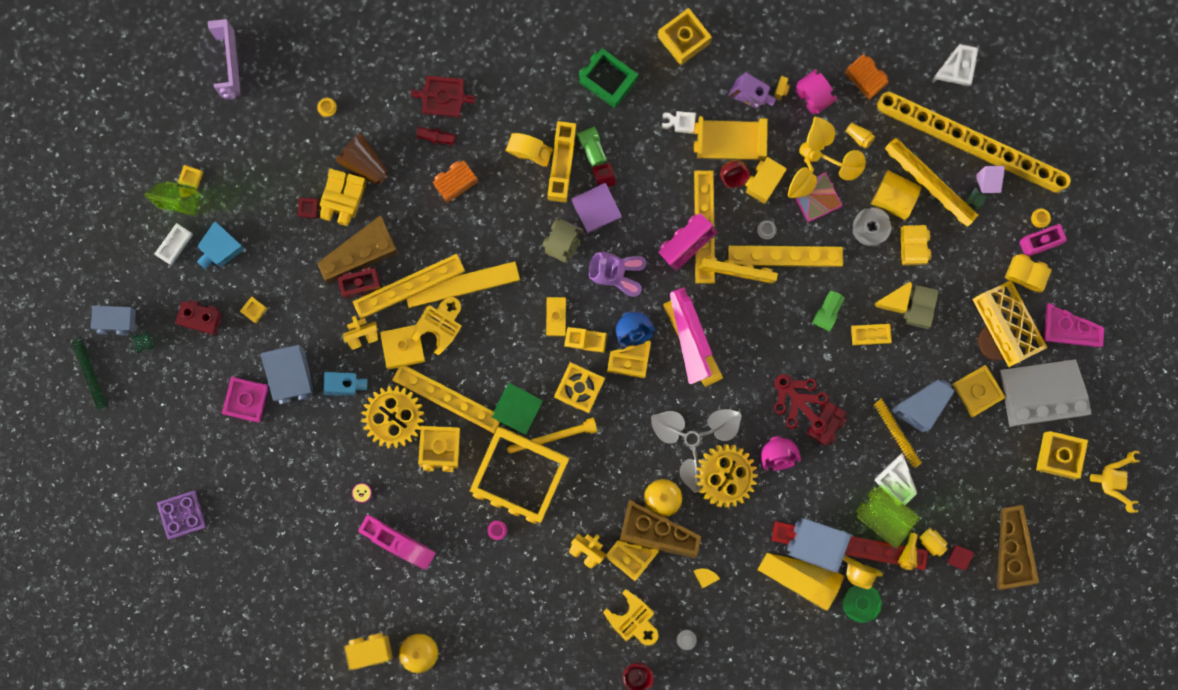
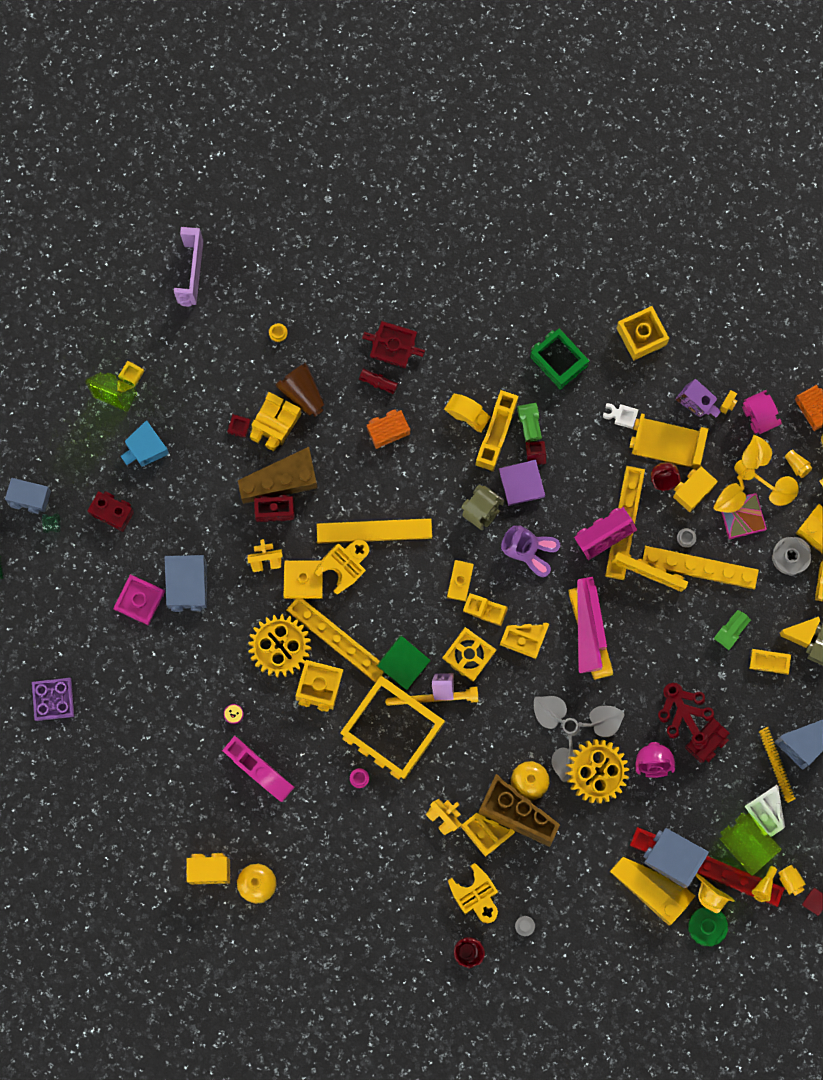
camera: 15 degrees right, 5 degrees down
(173, 244) = (101, 435): white plate -> none
(253, 310) = (165, 514): yellow tile -> none
(334, 383) = (229, 604): dark azure torso -> none
(408, 286) = (322, 521): yellow tile -> none
(560, 424) = (443, 686): none -> lavender slope
(634, 328) = (535, 608): blue cylinder -> none
(705, 577) = (556, 867): yellow tile -> none

